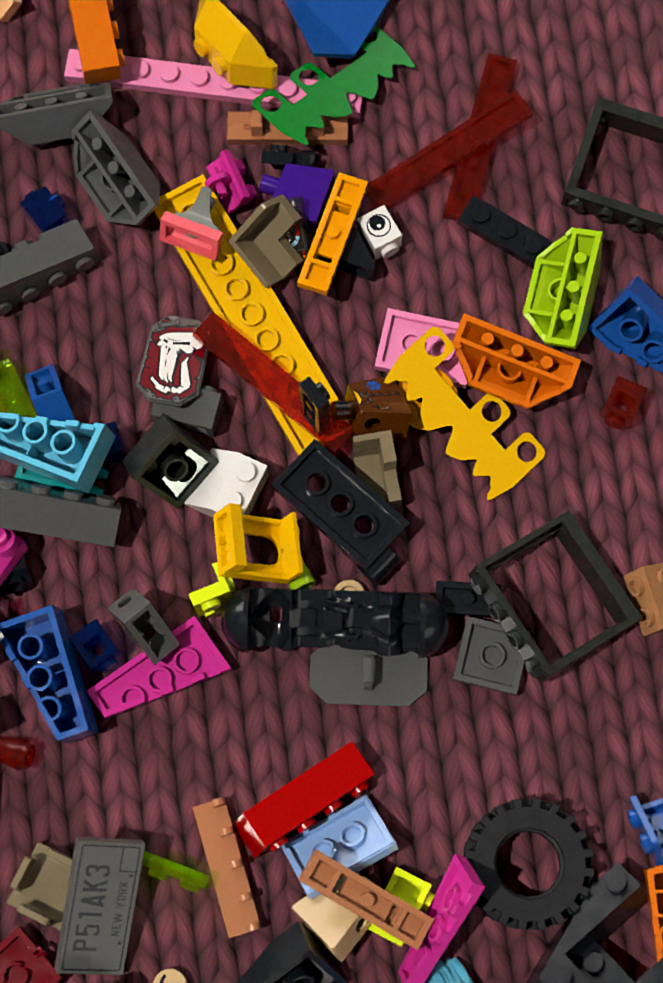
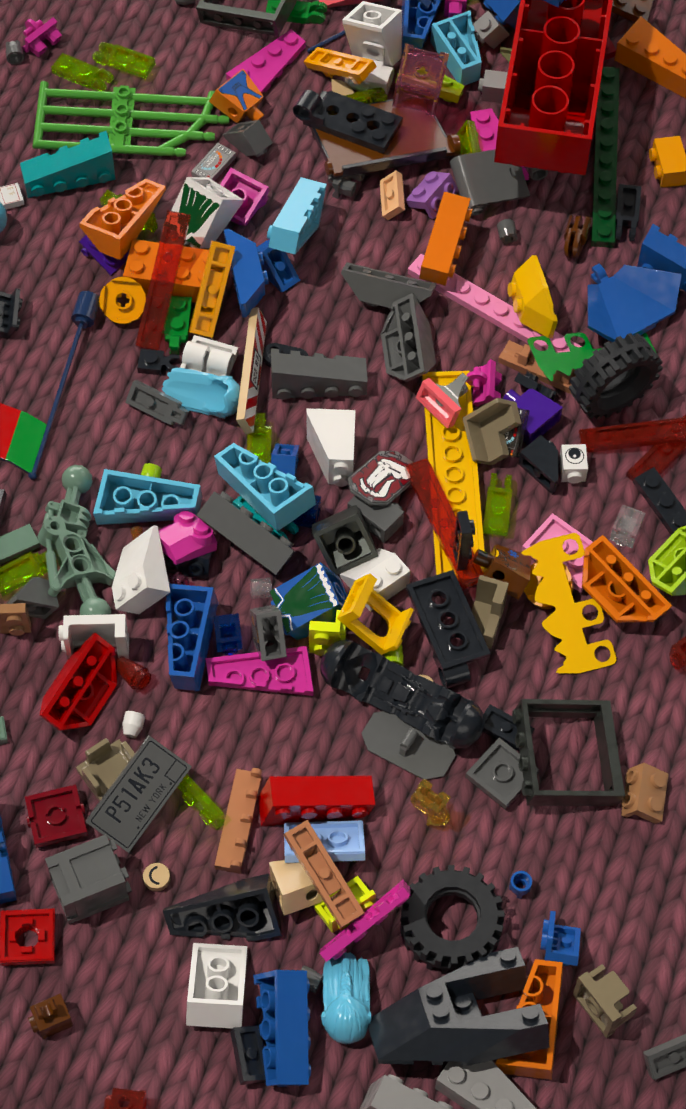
camera: 25 degrees right, 15 degrees down
(44, 209) = (347, 343): clear blue brick -> none
(44, 814) = (132, 724): none -> white hose
(95, 346) = (332, 442): none -> white slope
(103, 568) = (260, 587): none -> clear hose
(171, 559) = (307, 598): none -> slope
(321, 330) = (498, 507): none -> clear neon green hinge
(332, 233) = (538, 445): light orange hinge -> none
(380, 105) = (615, 376): none -> black tyre
(429, 739) = (431, 804): none -> clear yellow animal
(478, 282) = (627, 526): none -> clear brick
(587, 775) = (523, 878): none -> blue hose

